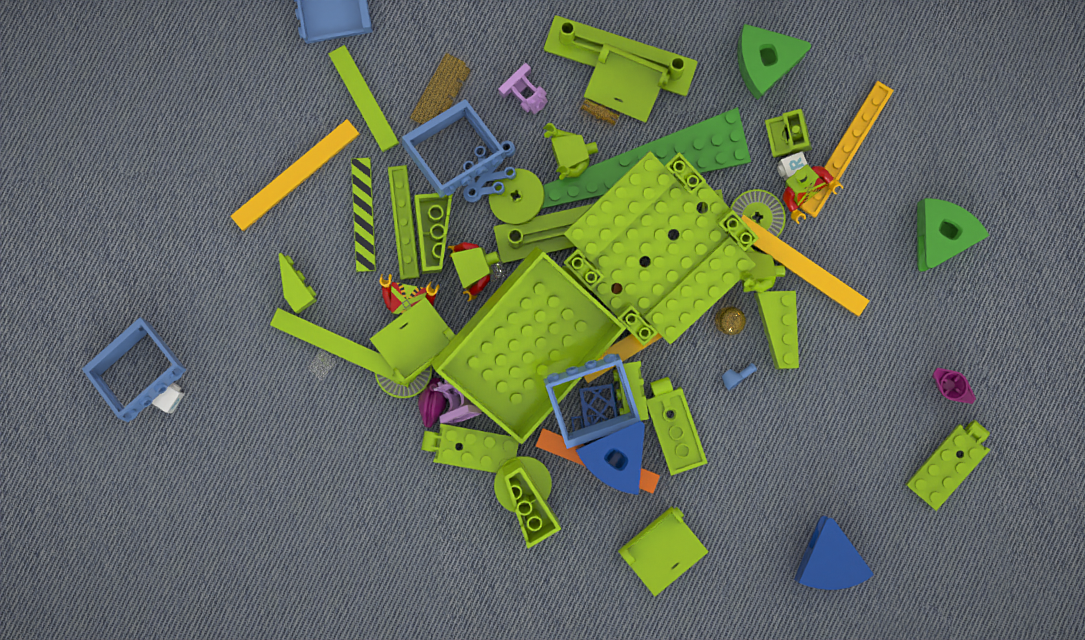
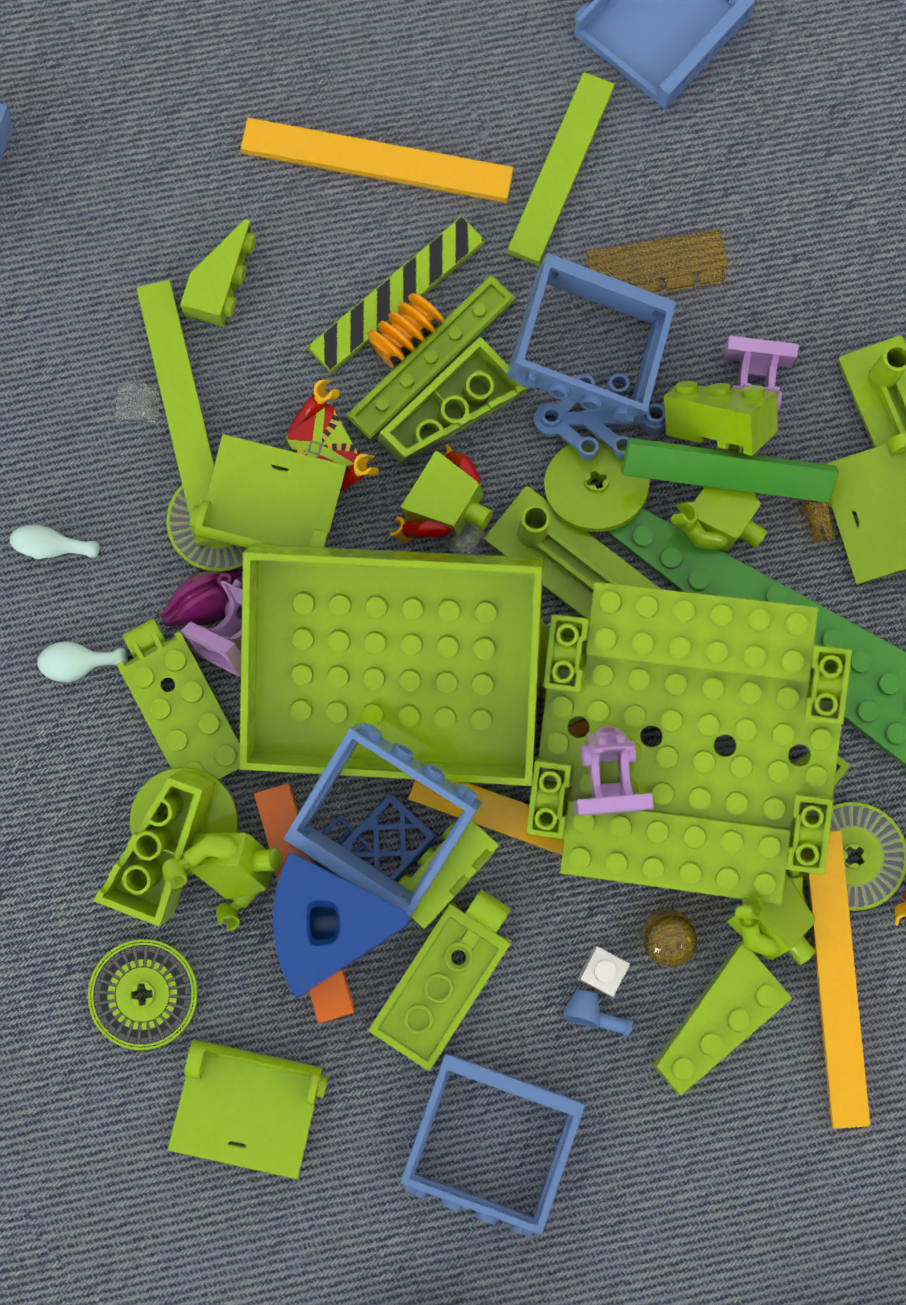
camera: 50 degrees right, 5 degrees down
(354, 451) = (46, 542): none -> light aqua piece
(382, 224) = (404, 328): none -> light orange piece
(415, 480) = (72, 661): none -> light aqua piece
(531, 120) = (722, 414): none -> lime wedge
(557, 137) = (729, 470): none -> bright green tile
(558, 480) = (230, 865): none -> lime torso
(584, 573) = (122, 1016): none -> piece
(657, 299) = (606, 746): none -> lavender tile
(723, 359) = (603, 971): none -> white brick
(782, 483) = (486, 1209): none -> medium blue window

